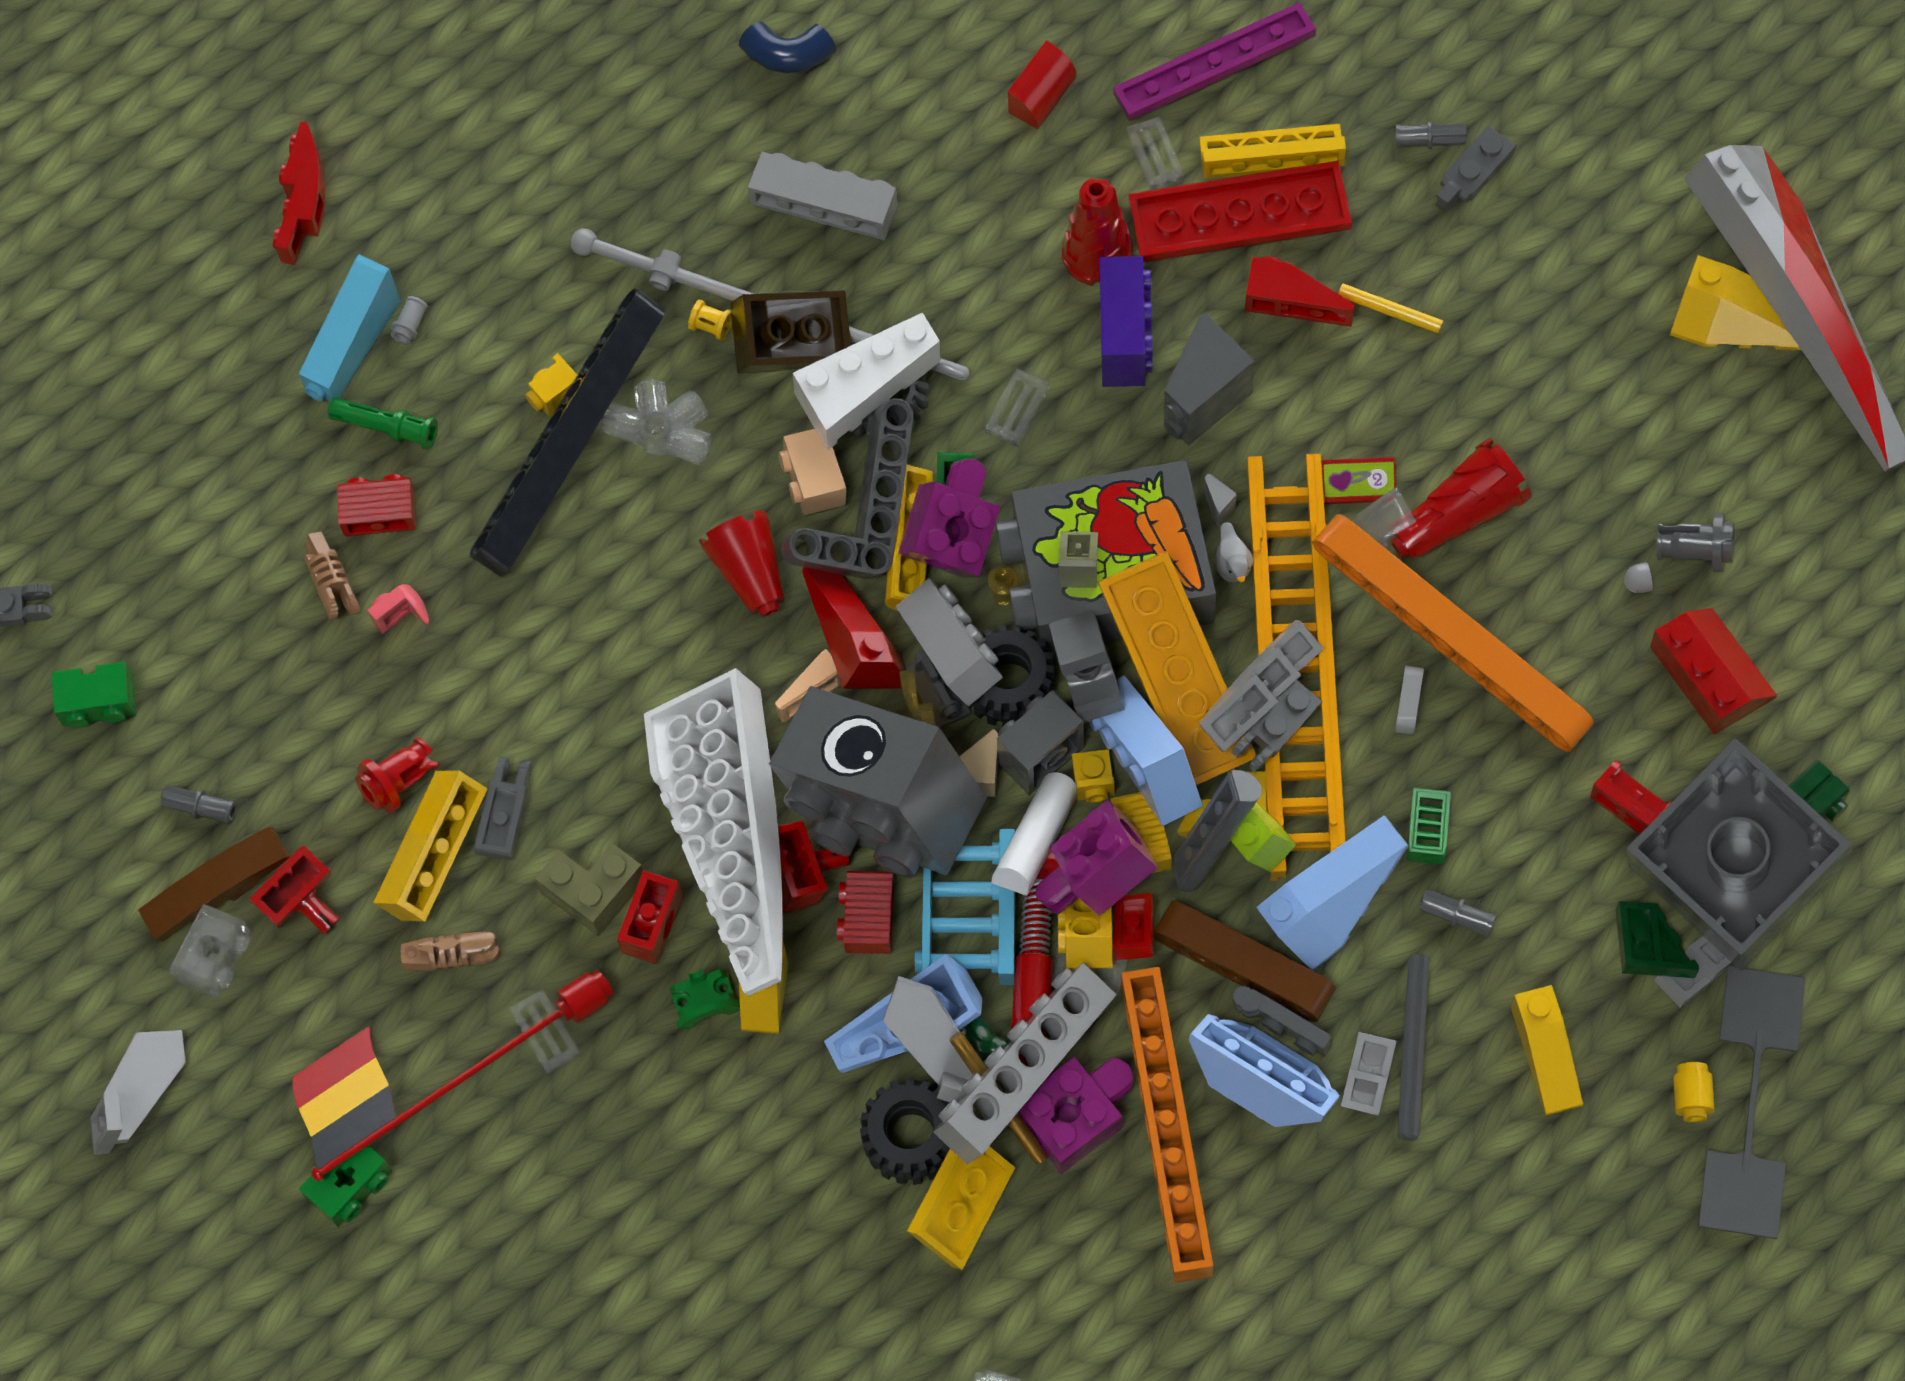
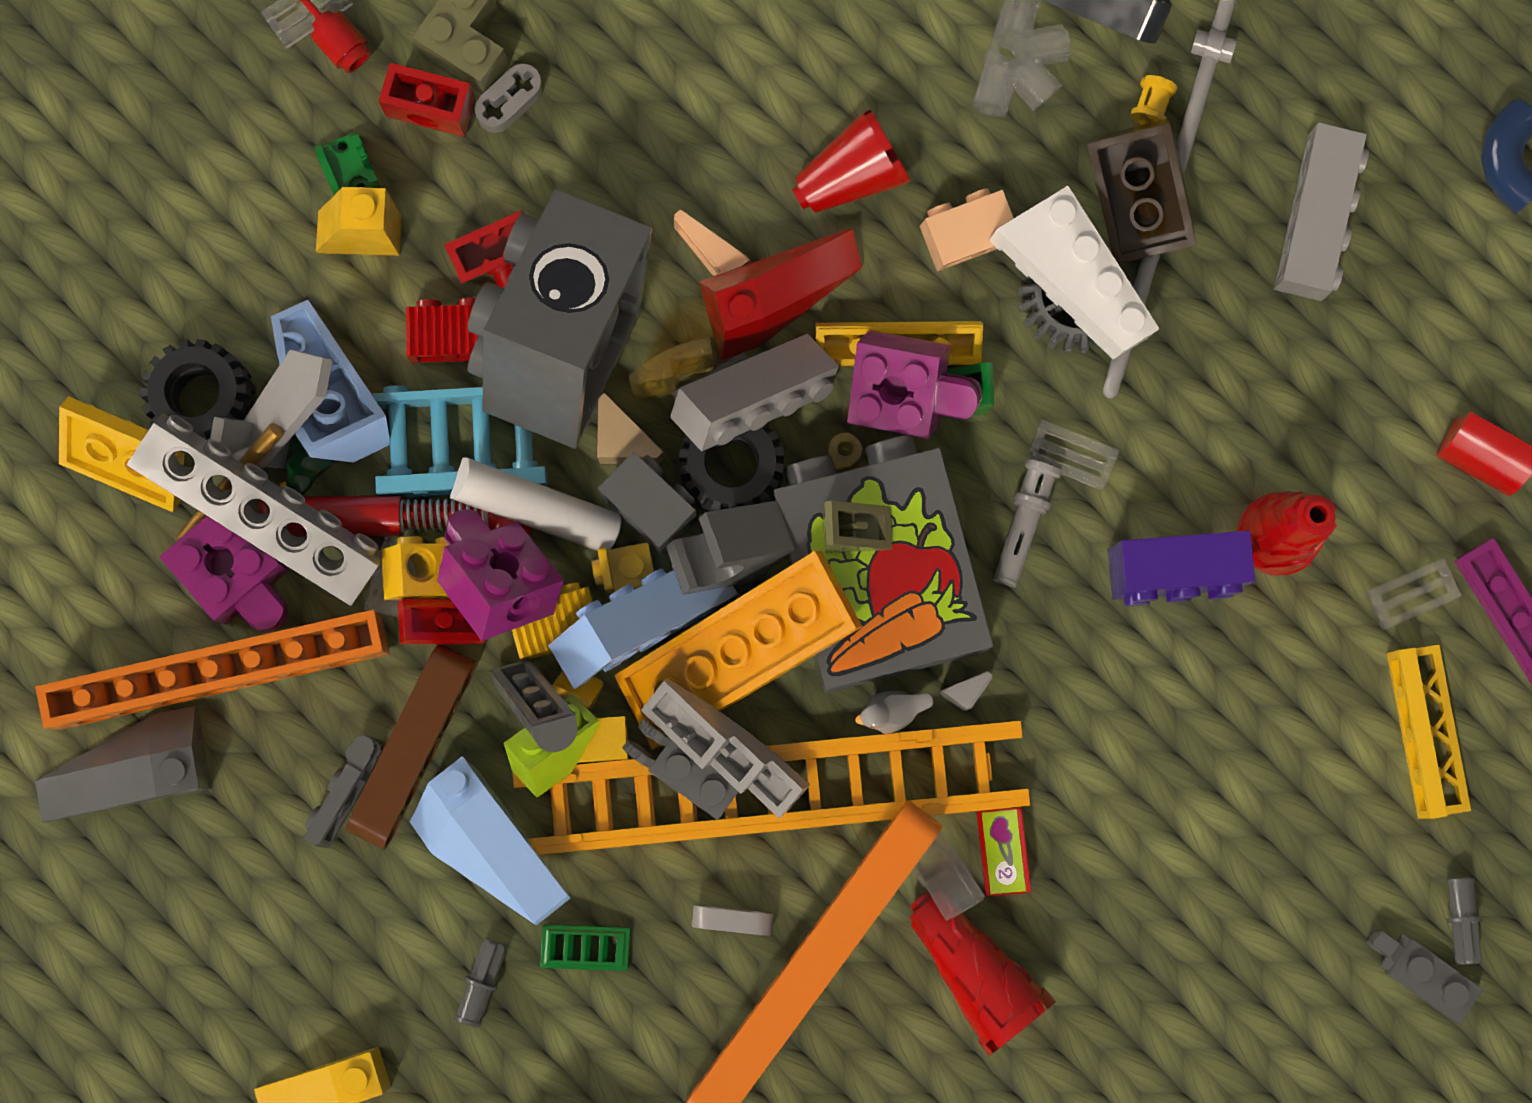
camera: 75 degrees right, 15 degrees up
(657, 850) = (515, 105): none -> light grey beam
(719, 788) = (606, 147): white wedge -> none
(870, 505) = (924, 295): dark grey beam -> none
(1059, 440) = (1025, 521): none -> light grey pin
(1206, 382) = (1109, 665): dark grey slope -> none
(1239, 211) = (1342, 697): red plate -> none
(1248, 1201) = (140, 765): none -> dark grey wedge
(1261, 1073) = (278, 775): light blue wedge -> none
(1287, 291) = (1240, 756): red slope -> none
(1368, 1073) = (291, 890): light grey slope -> none
(1391, 308) = (1231, 880): yellow bar -> none
(1413, 1047) = (324, 938): dark grey axle -> none

